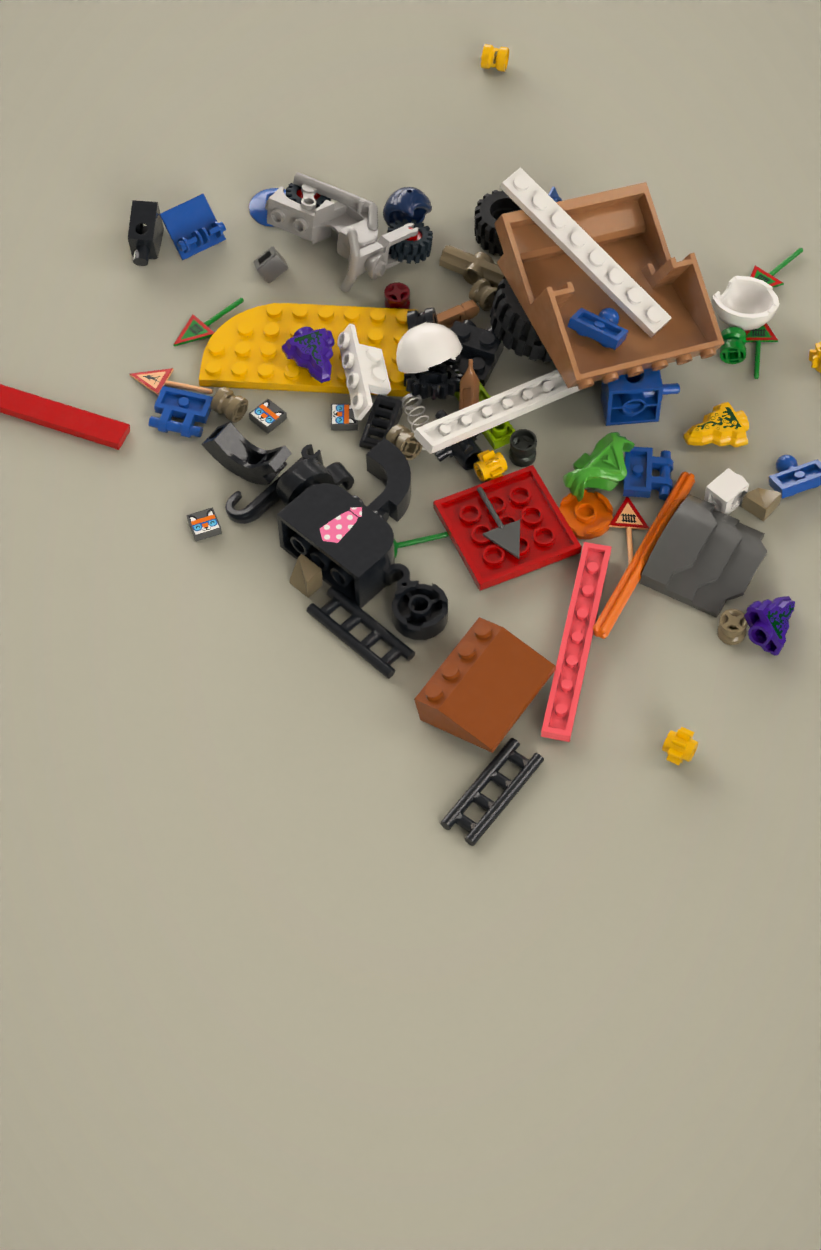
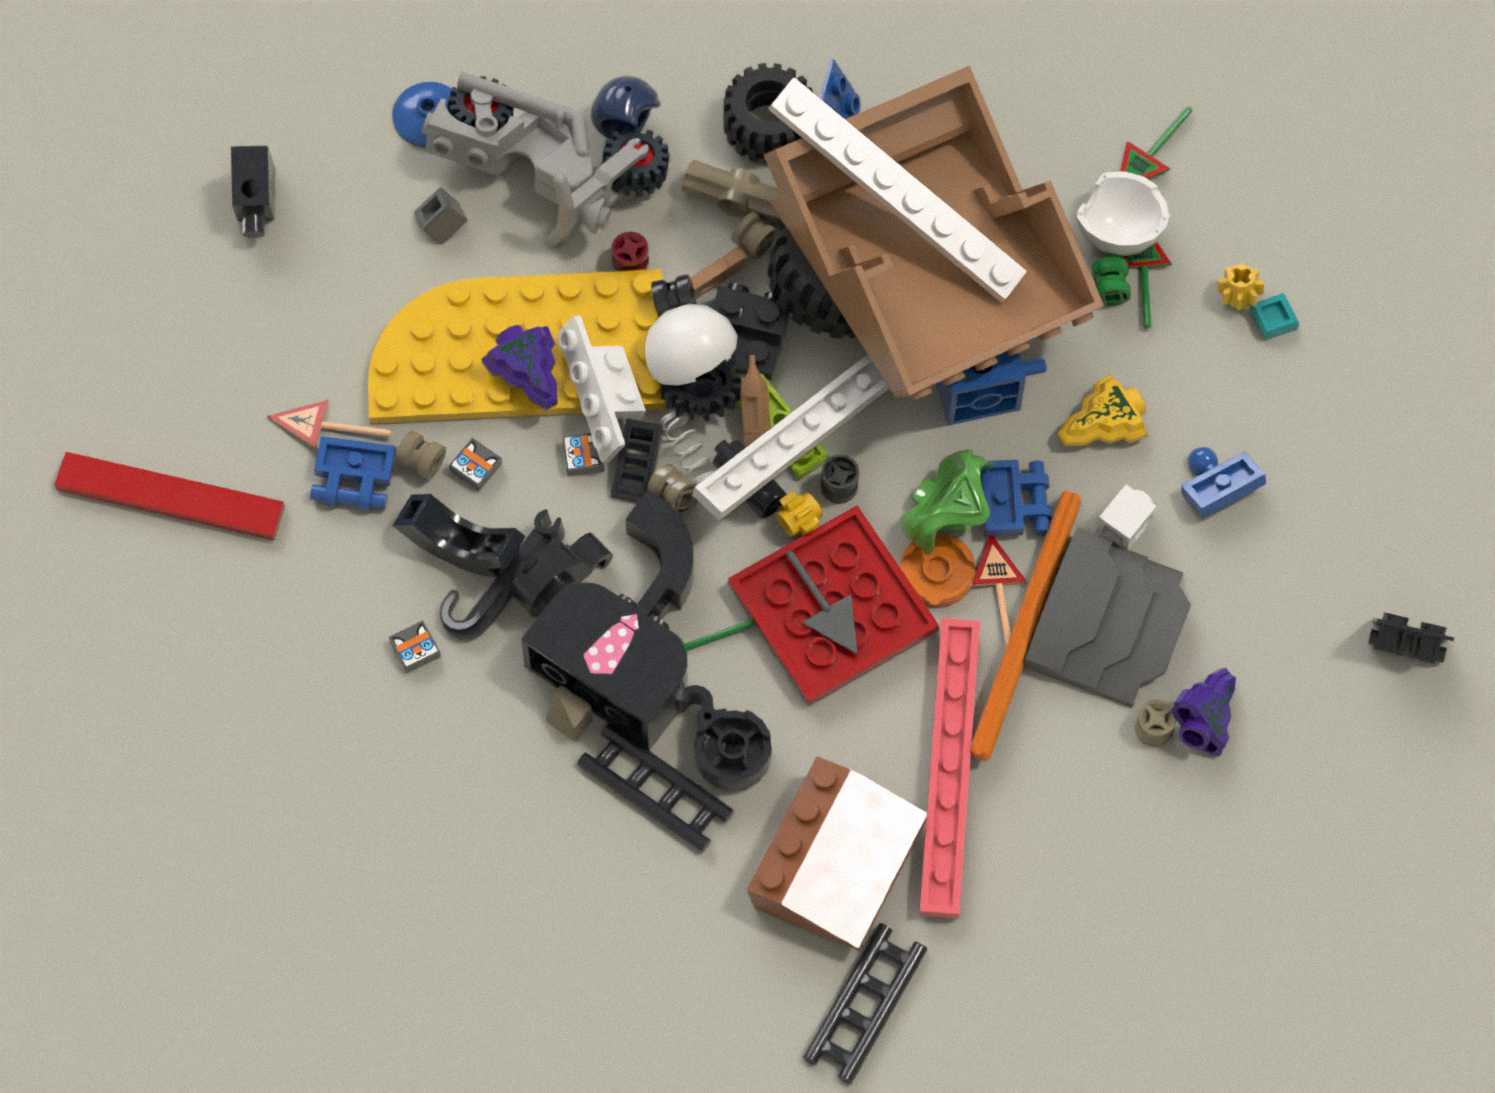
camera: 10 degrees left, 10 degrees up
(193, 226) = (320, 167): blue hinge -> none
(198, 330) = (352, 334): piece -> none
(599, 327) = (929, 299): blue plate -> none
(680, 746) = (1105, 910): yellow gear -> none
(761, 502) = (1174, 525): dark tan slope -> none

